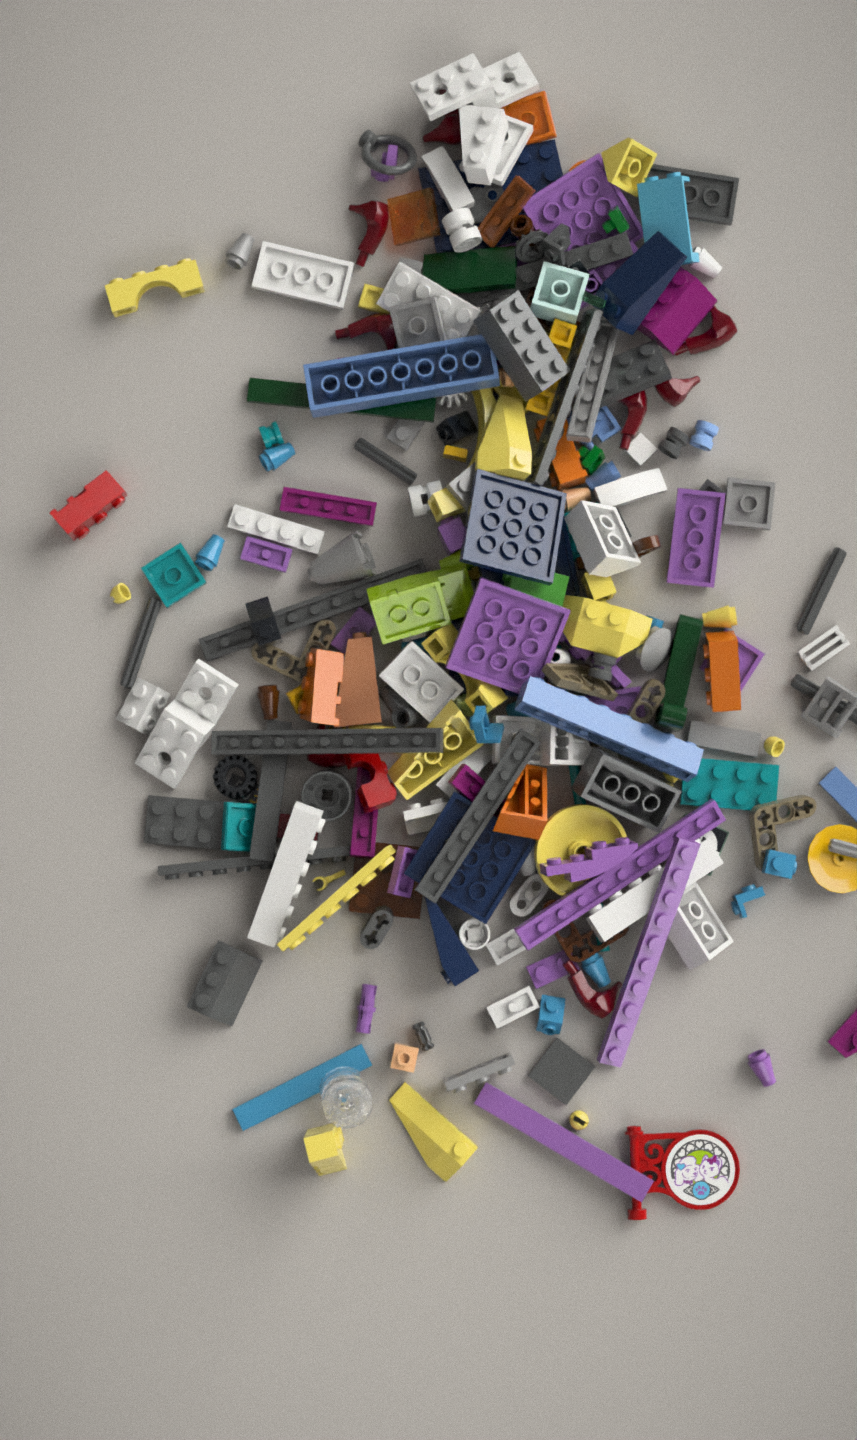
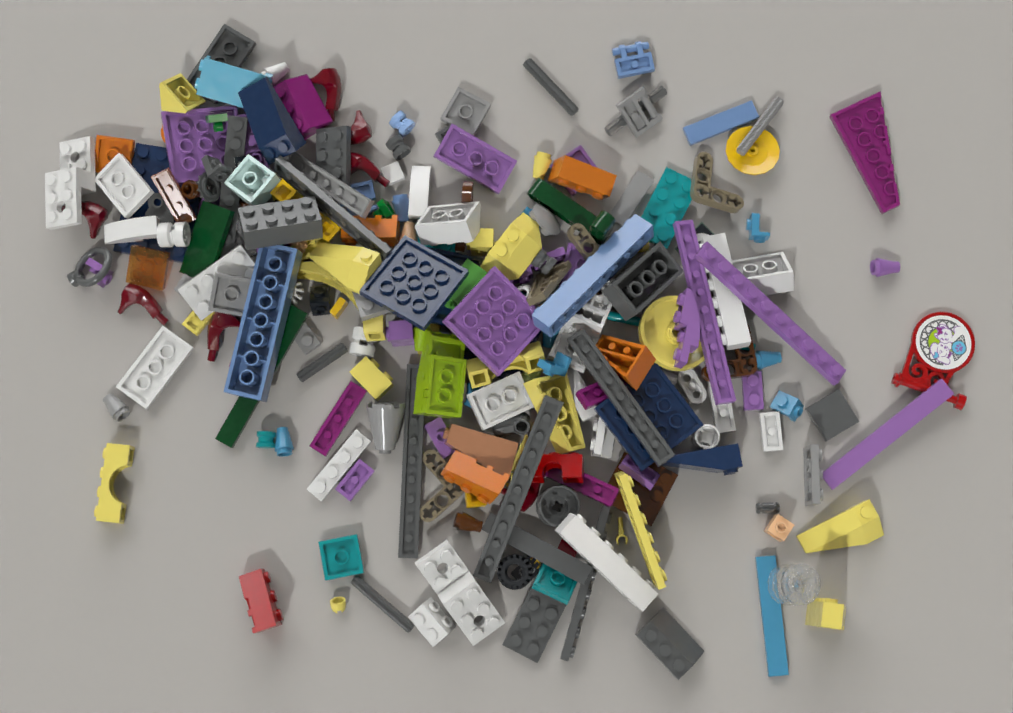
camera: 60 degrees left, 5 degrees down
(209, 554) = (336, 523): dark azure cone -> none
(263, 622) = (406, 501): black slope -> none
(366, 1008) = (730, 542): medium lavender pin -> none
(372, 924) = (675, 507): dark grey beam -> none
(389, 525) = (371, 378): none -> light yellow brick
(482, 141) = (113, 191): white wedge -> none
(580, 1114) = (869, 414): light yellow hinge -> none
(593, 300) = (269, 157): clear green tile -> none
(595, 1002) = (792, 368): dark red animal -> none
(774, 746) = (650, 165): light yellow hinge -> none
(779, 864) = (740, 194): dark azure bracket -> none
(839, 636) = (589, 87): white tile -> none

